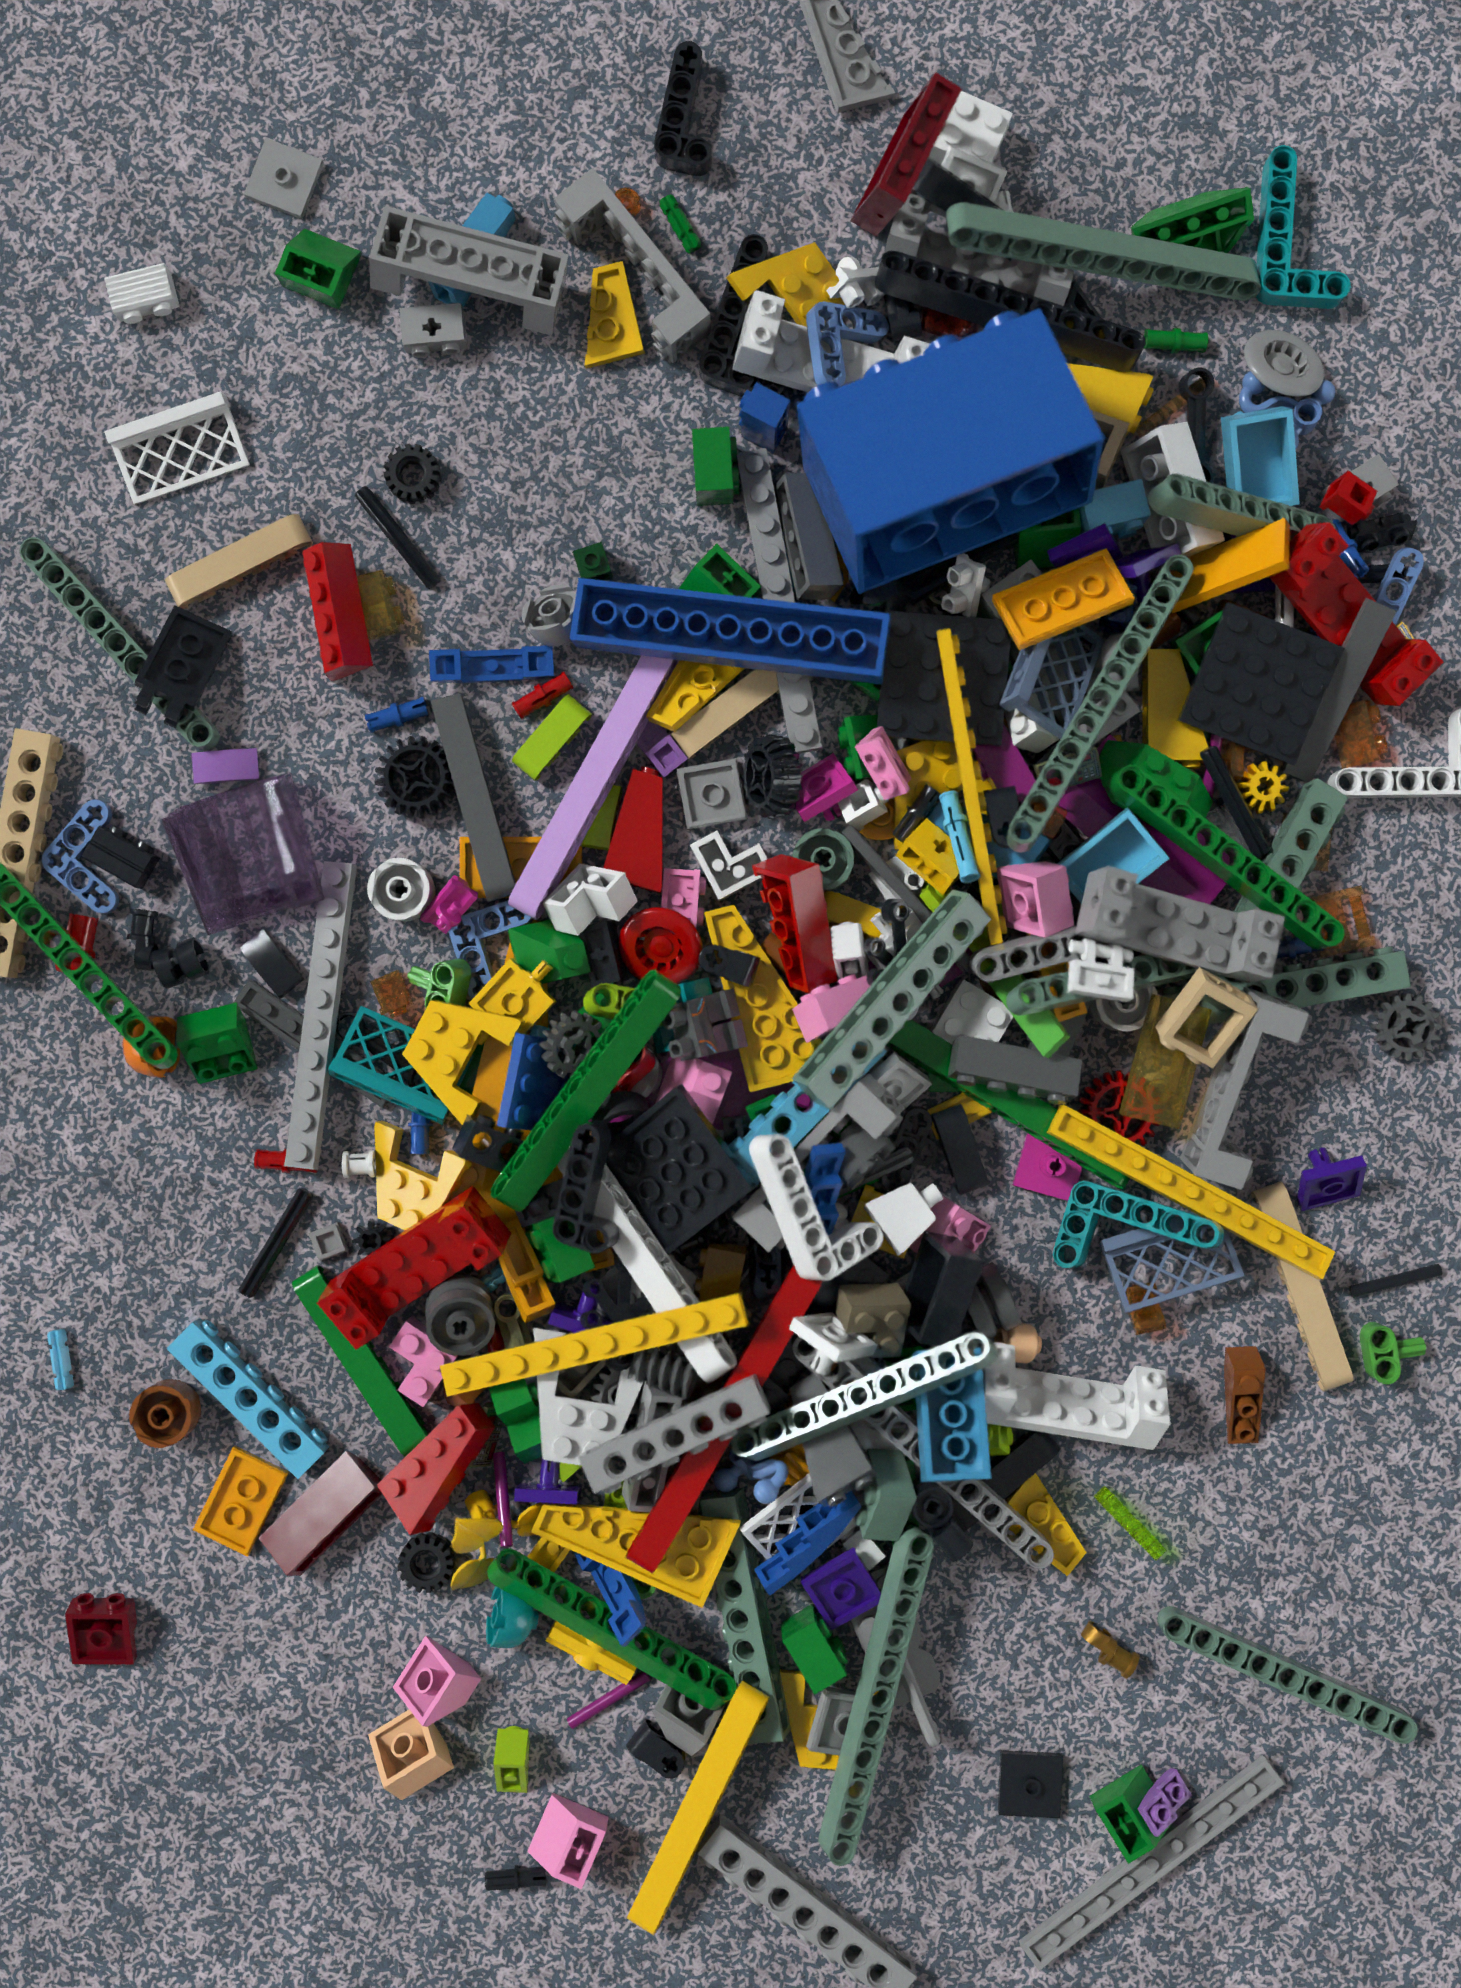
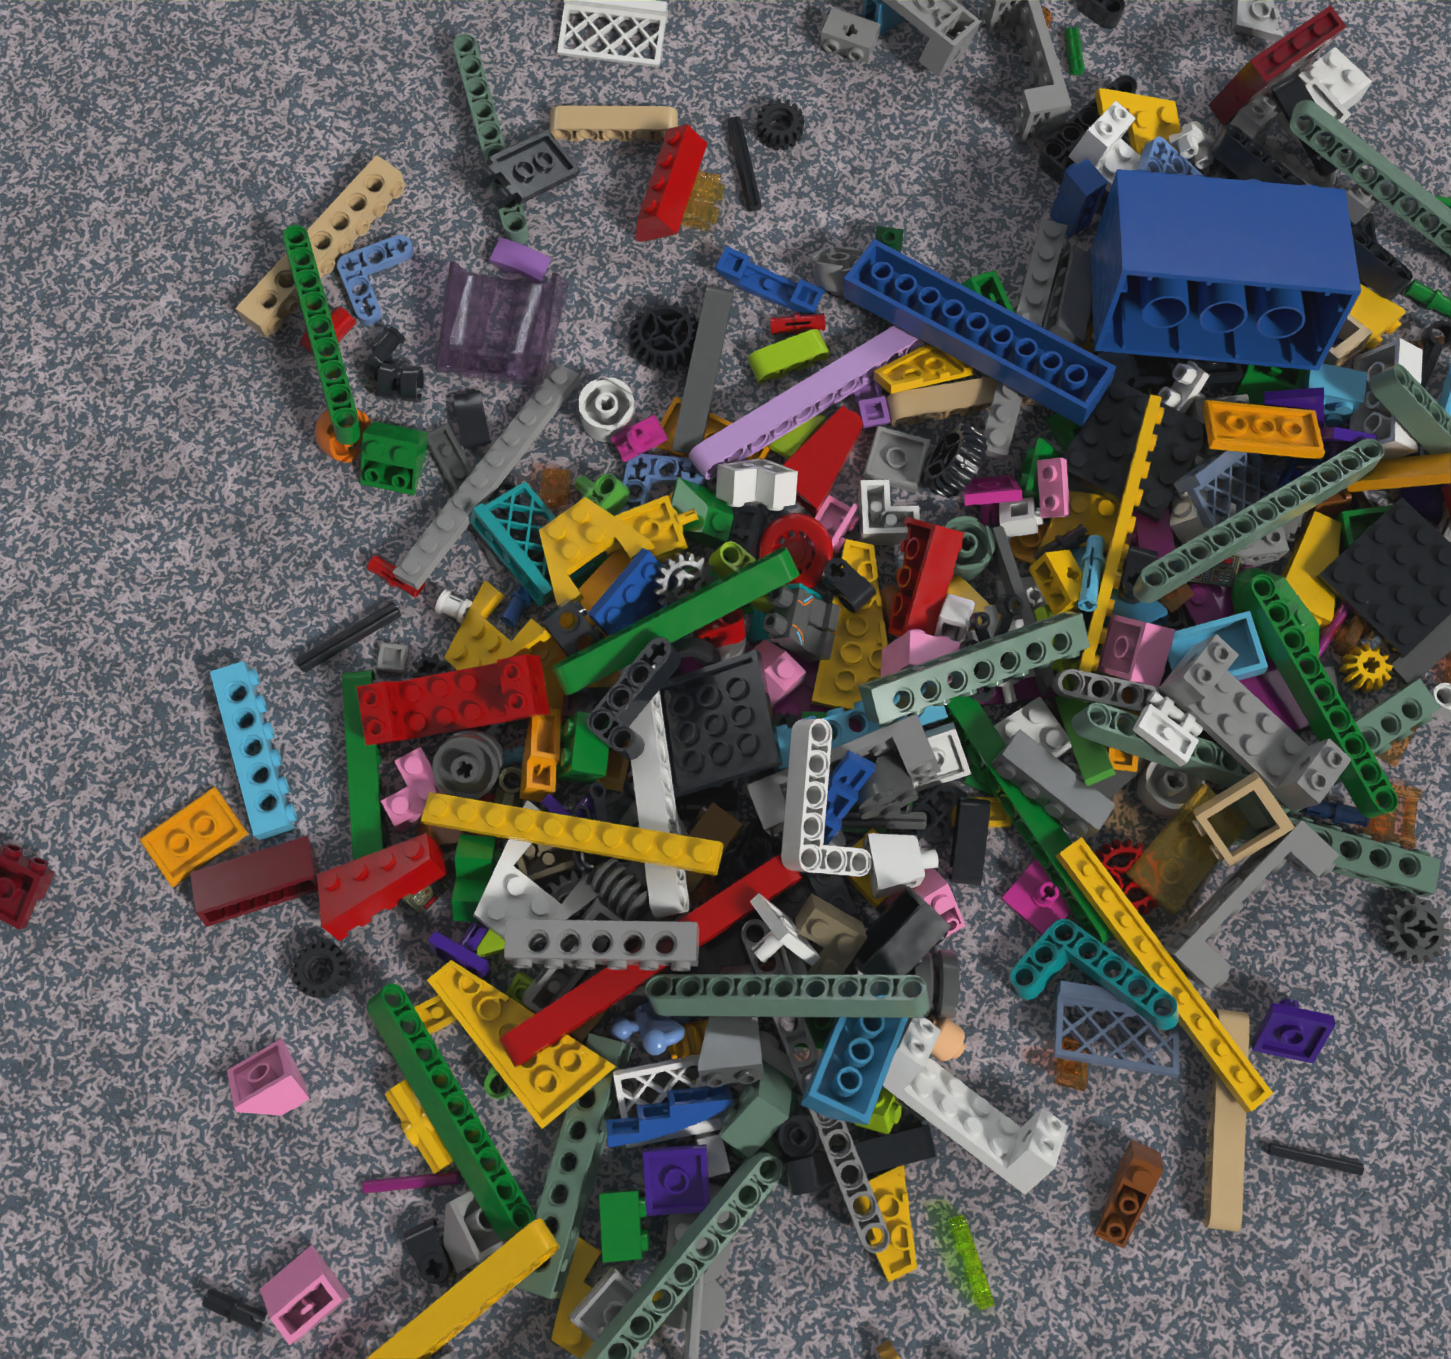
camera: 25 degrees right, 15 degrees down
(60, 1359) = (118, 643): medium azure axle -> none
(120, 856) = (401, 285): black brick -> none
(150, 1421) = (160, 724): dark orange brick -> none
(397, 714) = (674, 285): blue pin -> none
(409, 1755) = (206, 1137): light nougat slope -> none
(474, 1532) = (378, 946): yellow plant -> none
(502, 1496) = (417, 945): magenta bar -> none
(509, 1620) = (365, 1057): teal cylinder -> none
(512, 1759) = (293, 1192): lime slope -> none
(613, 323) = (990, 91): yellow wing -> none
(620, 1597) = (473, 1075): blue slope -> none
(713, 460) = (1020, 218): green brick -> none
(1234, 801) = (1338, 655): black axle -> none
(1387, 1350) = (1284, 1220): bright green beam -> none

